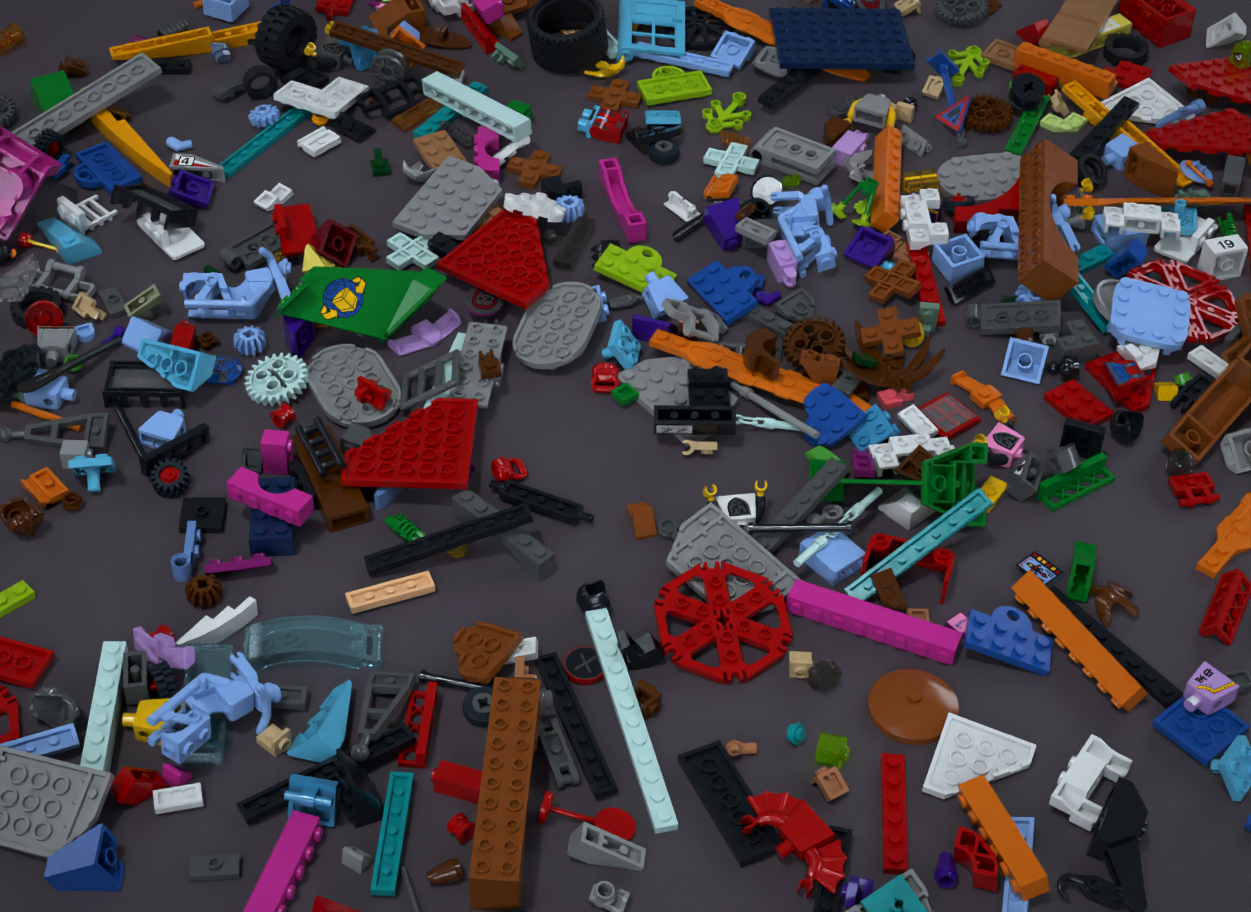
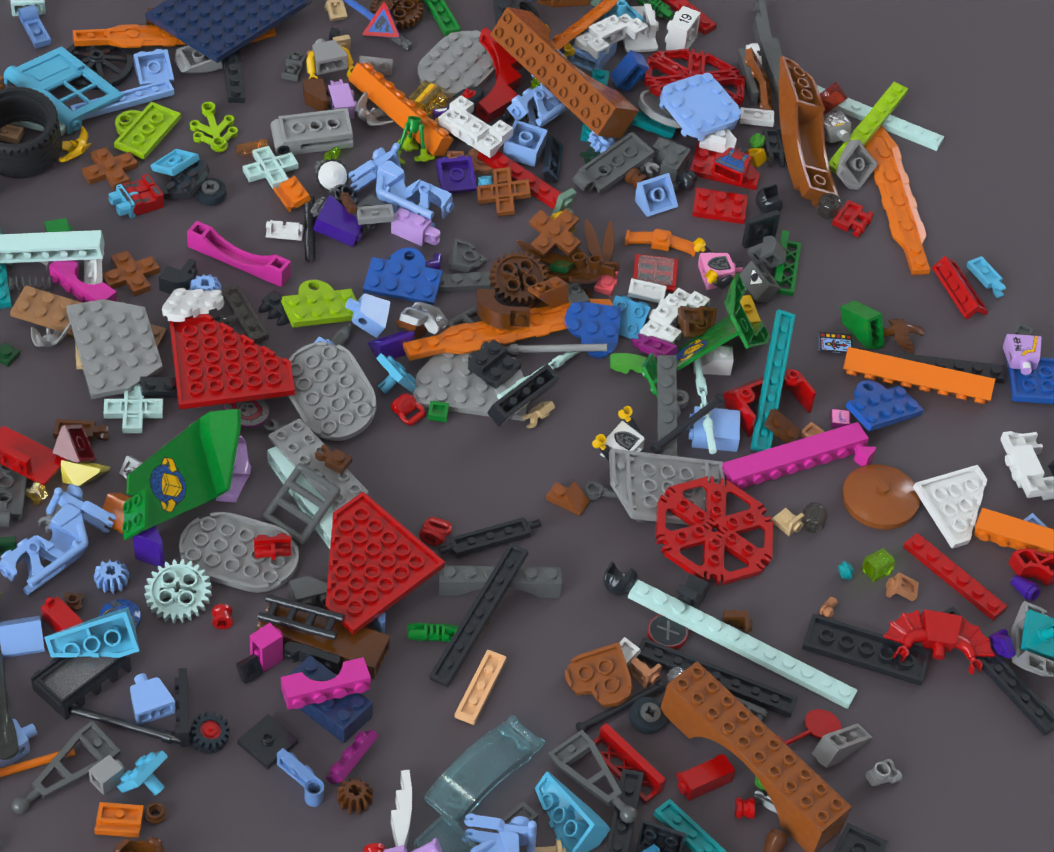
camera: 50 degrees left, 5 degrees up
(940, 665) = (864, 455): none -> dark pink slope

